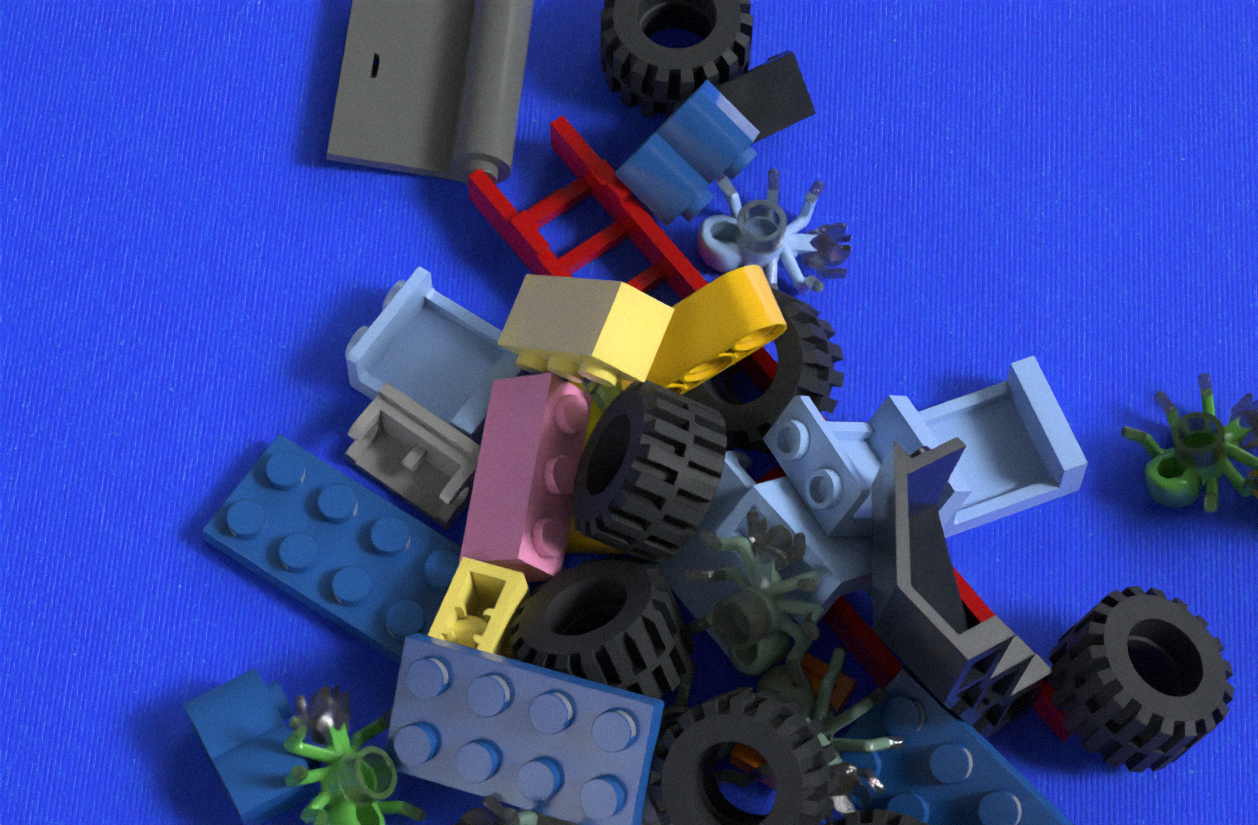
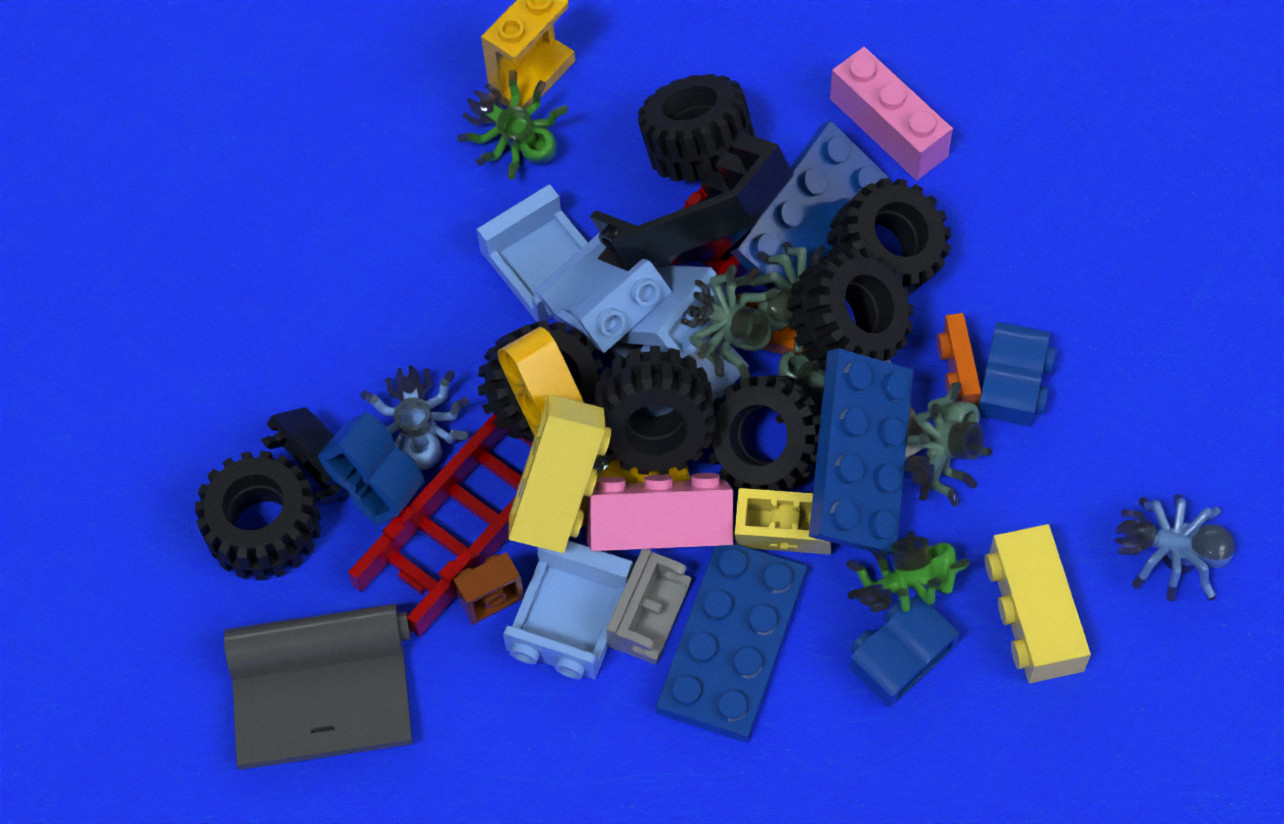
camera: 100 degrees left, 0 degrees up
(495, 267) = (489, 587): none -> dark orange piece

